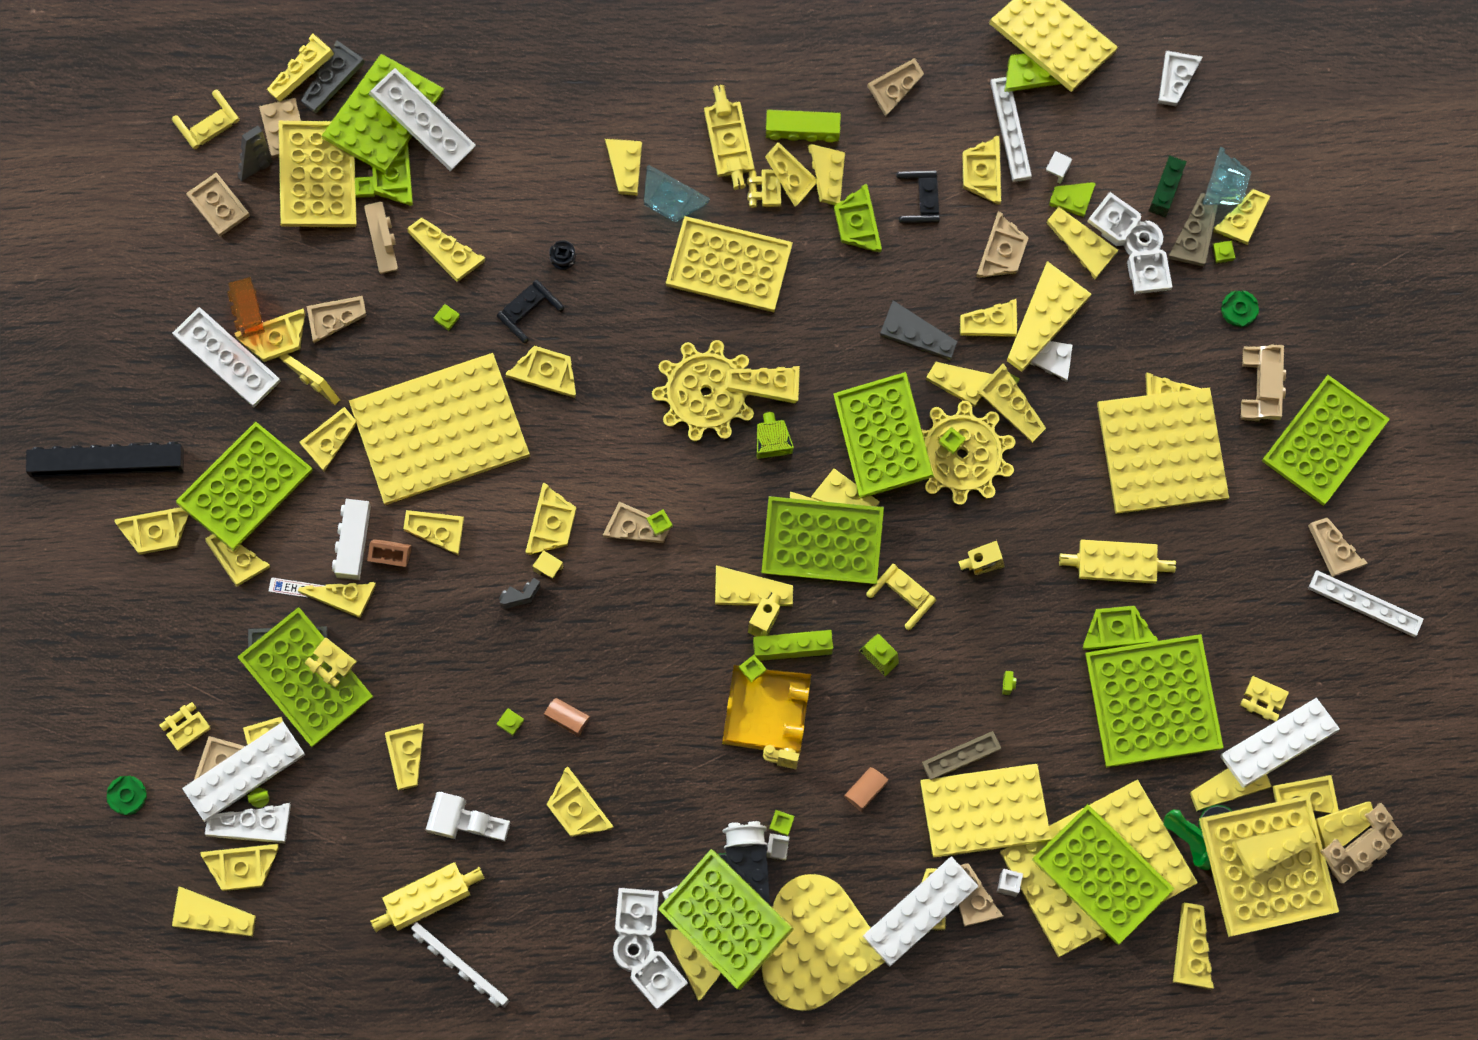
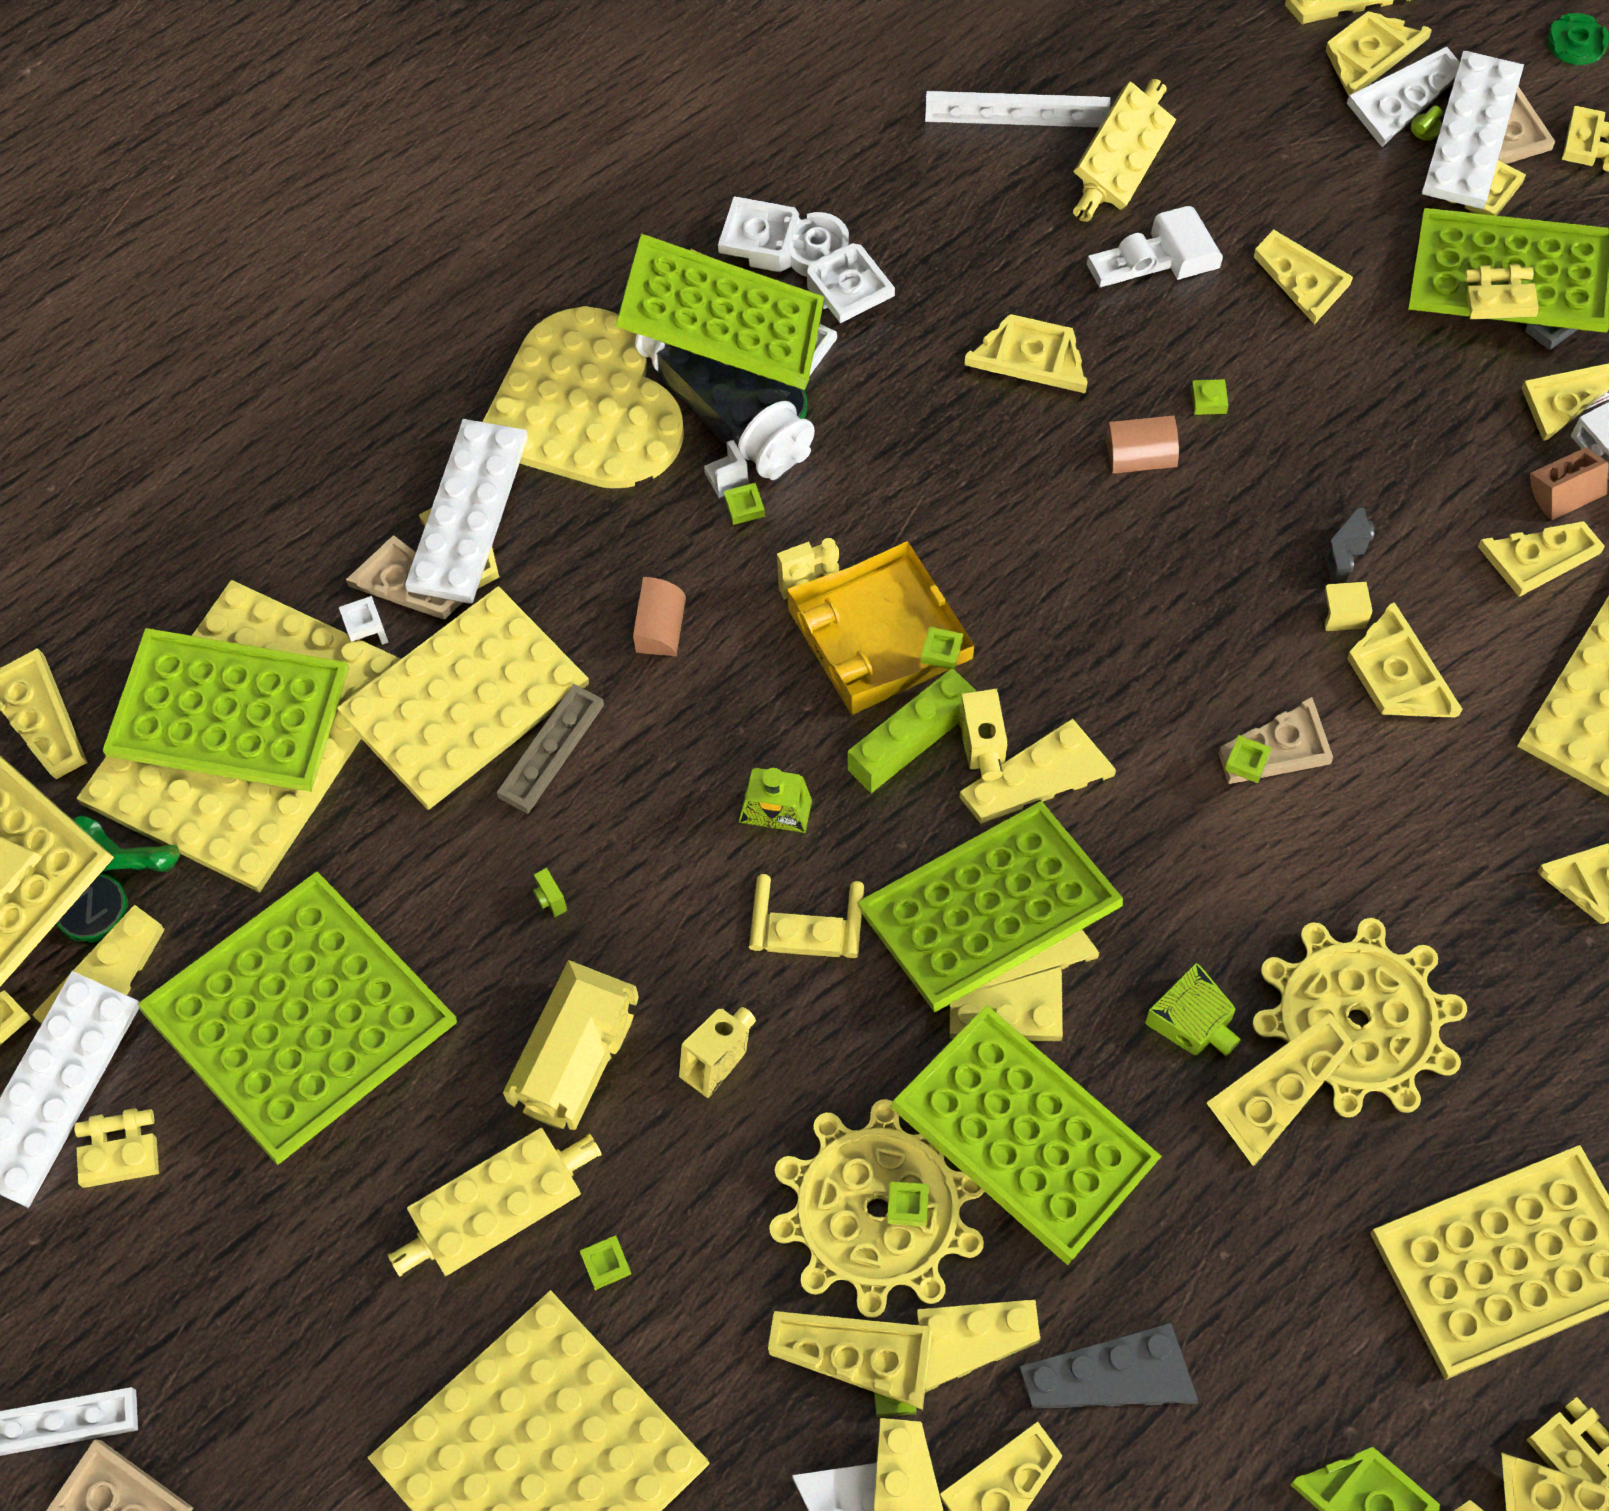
camera: 150 degrees right, 10 degrees down
(1045, 600) = (571, 1045): none -> light yellow brick
(1087, 507) = (605, 1262): none -> lime plate
(1117, 628) = (427, 1094): lime wing -> none

